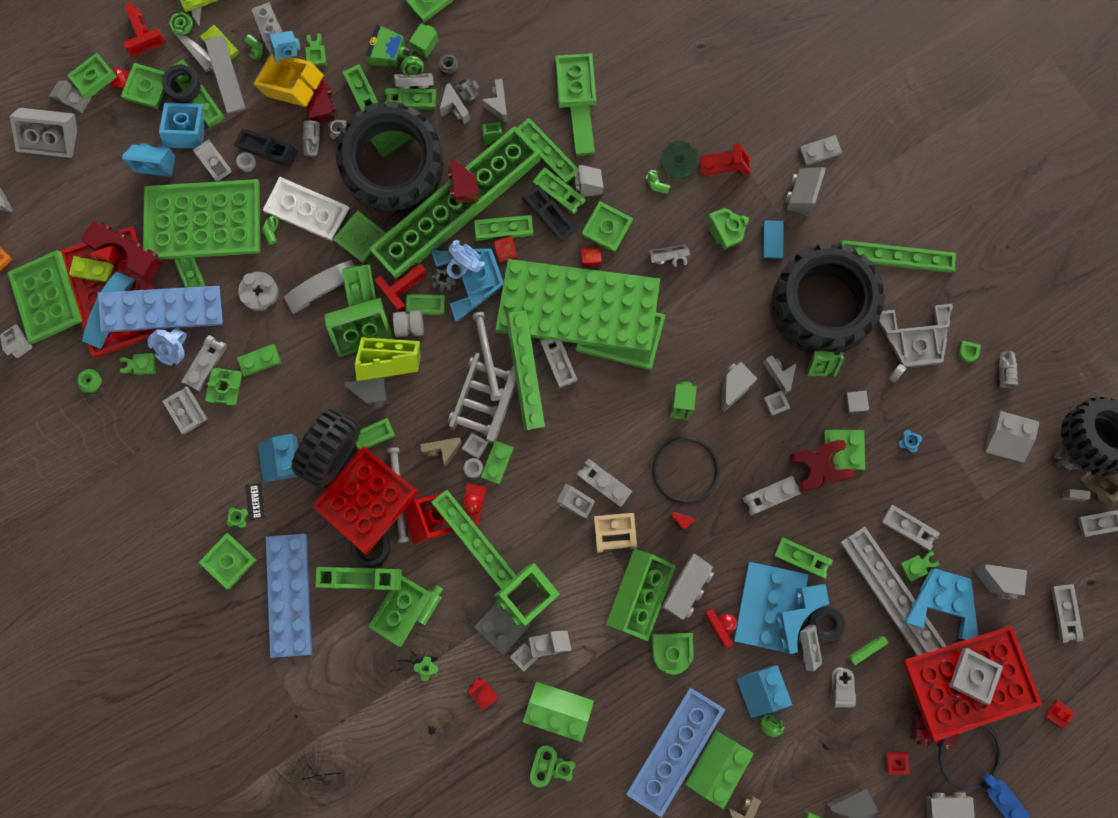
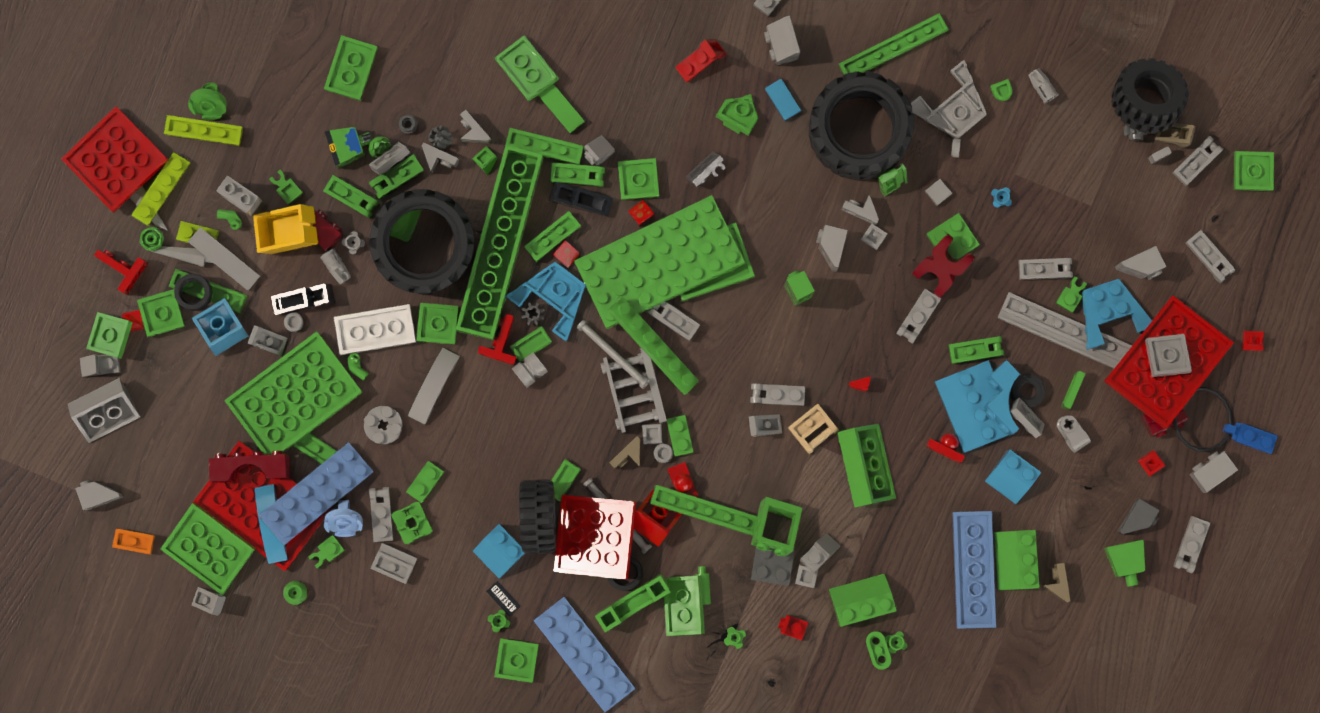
camera: 35 degrees left, 5 degrees up
(91, 269) = (232, 500): lime plate -> none
(107, 254) = (238, 480): red slope -> none
(150, 159) = (213, 374): dark azure slope -> none
(284, 45) = (266, 204): dark azure brick -> none
(357, 321) = (490, 399): bright green slope -> none
(358, 284) = (466, 365): bright green plate -> none
(370, 391) = (536, 447): dark grey slope -> none
(386, 358) = (532, 410): lime wedge -> none
(424, 40) = (373, 117): bright green brick -> none
(464, 183) = (499, 223): dark red slope -> none
(464, 257) = (541, 284): light blue tile -> none
(655, 184) = (654, 116): bright green arm -> none
(672, 652) = (921, 493): bright green tile -> none
(677, 499) = (823, 313): black piece -> none
(687, 153) = (659, 92): clear green plate -> none
(688, 587) = (900, 434): light grey slope -> none
(771, 726) = (1035, 499): bright green plate -> none
(1011, 436) = (1079, 140): light grey slope -> none

